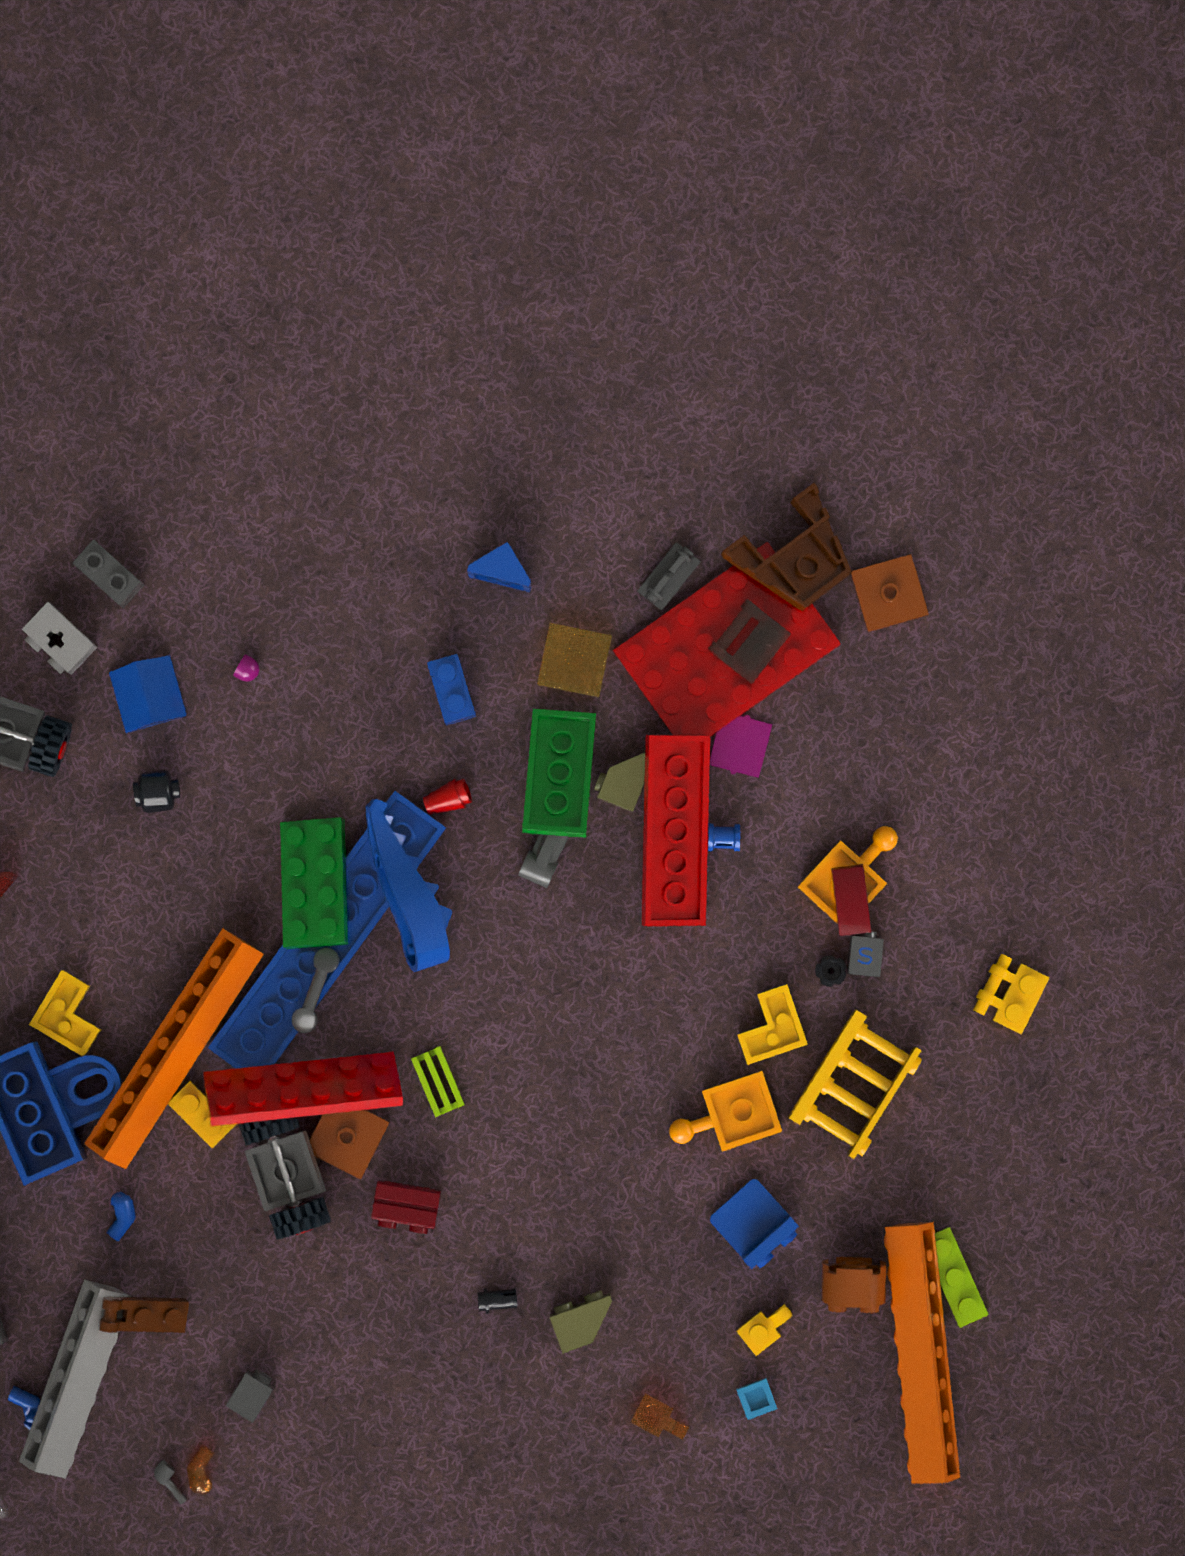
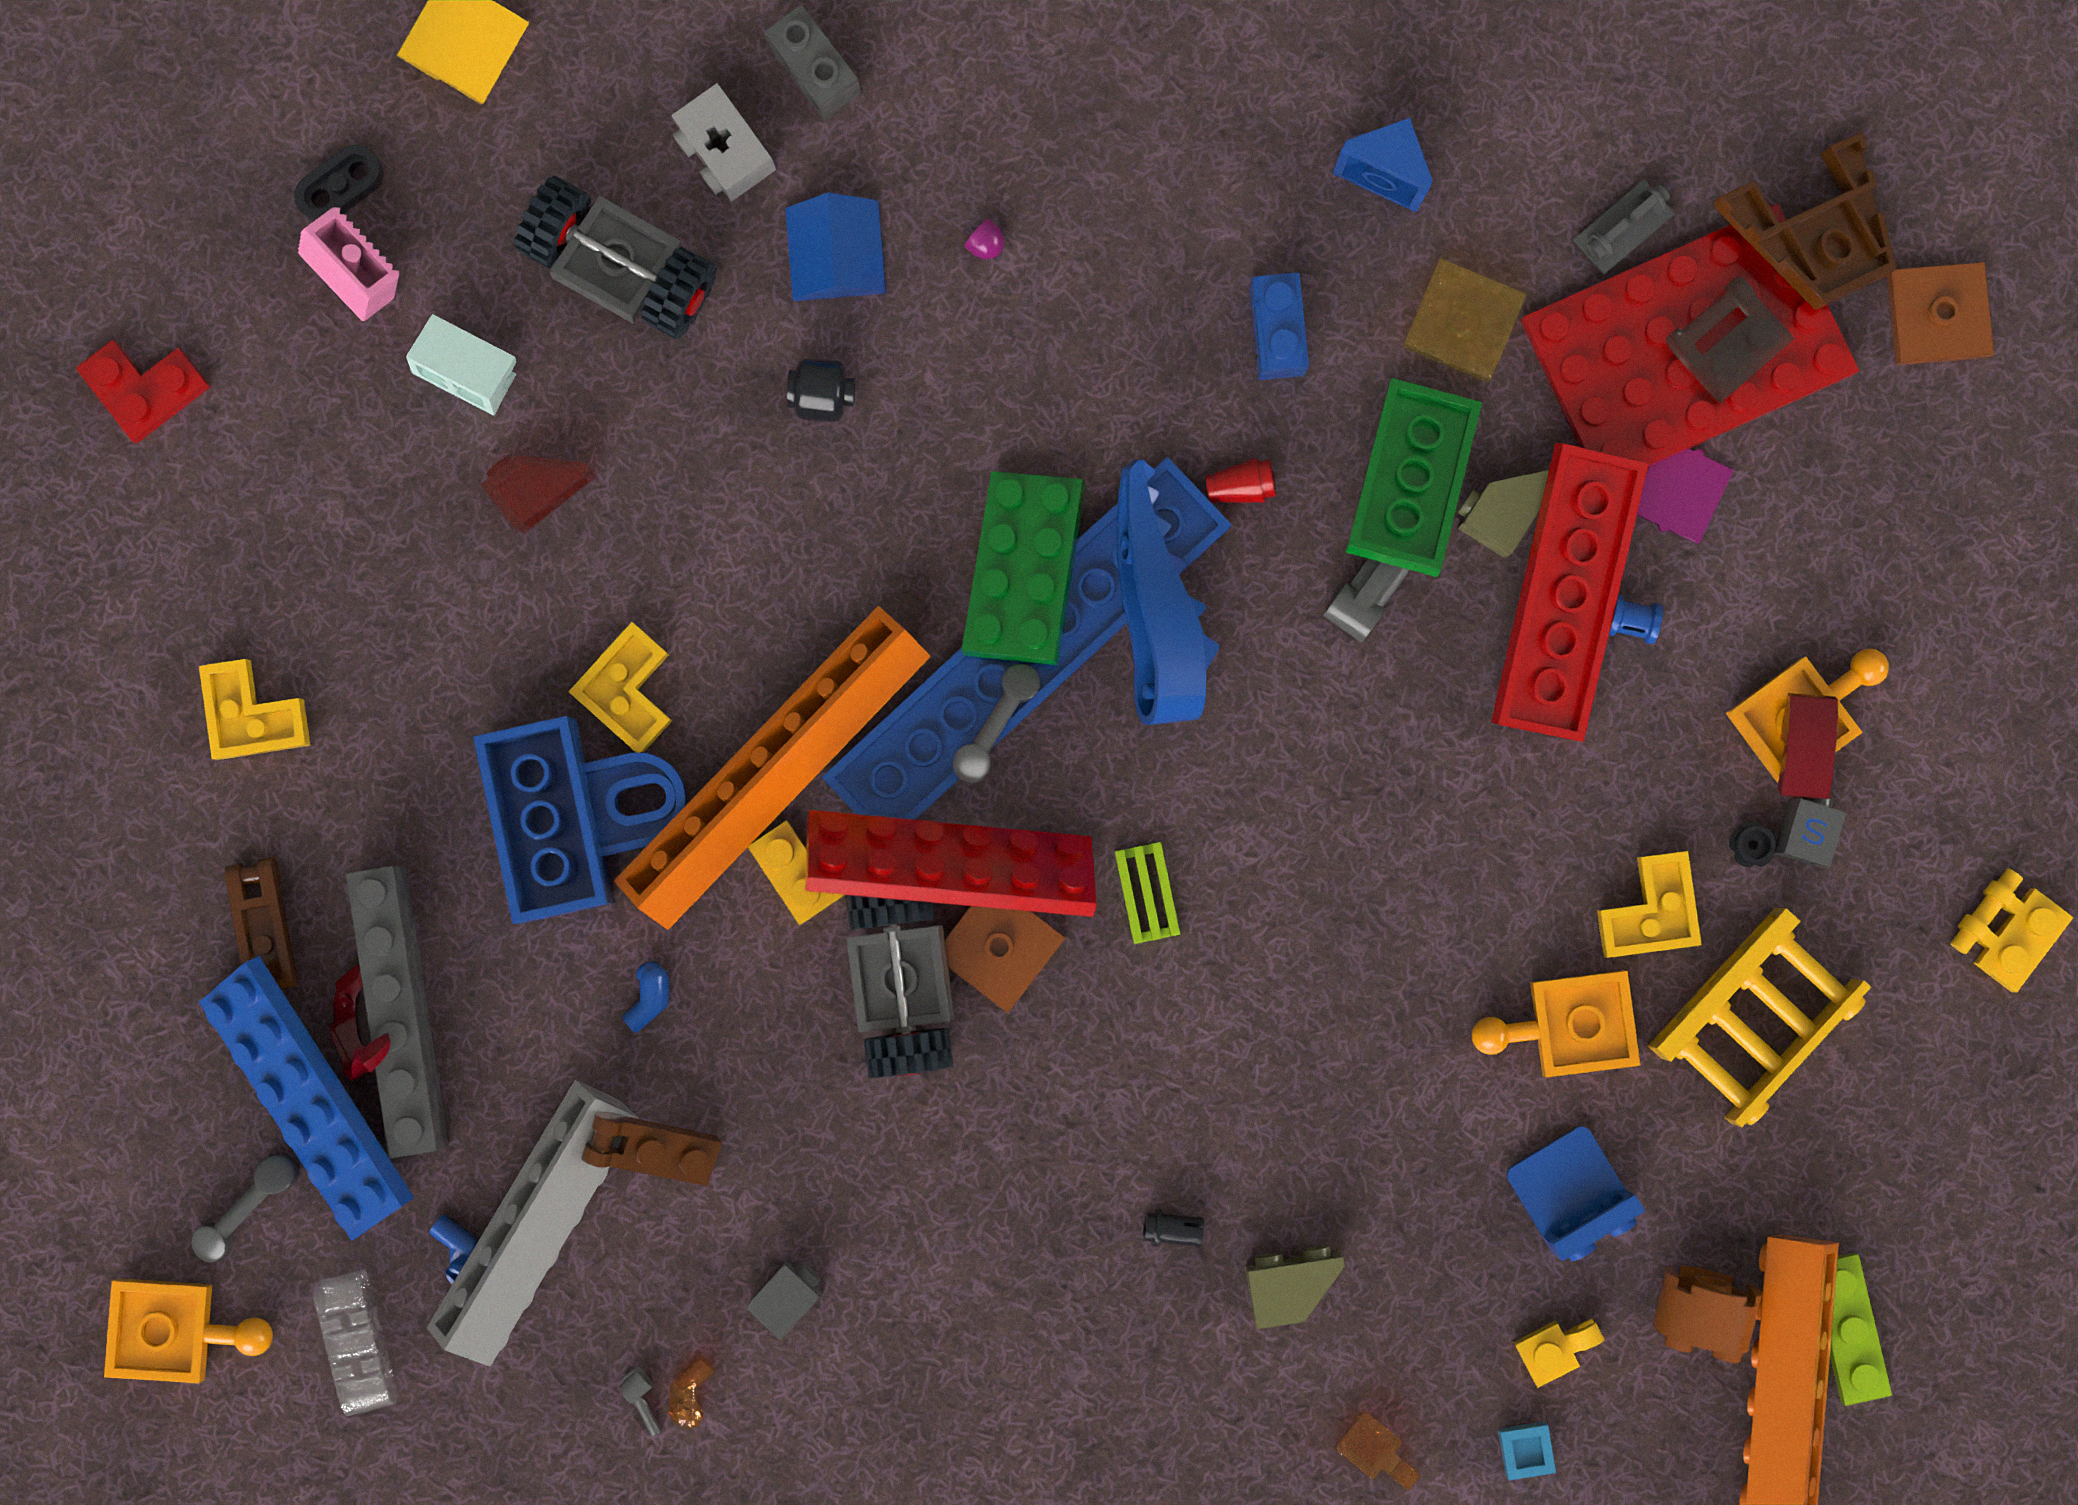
camera: 15 degrees right, 0 degrees up
(406, 1205) = (1067, 1065): dark red brick -> none

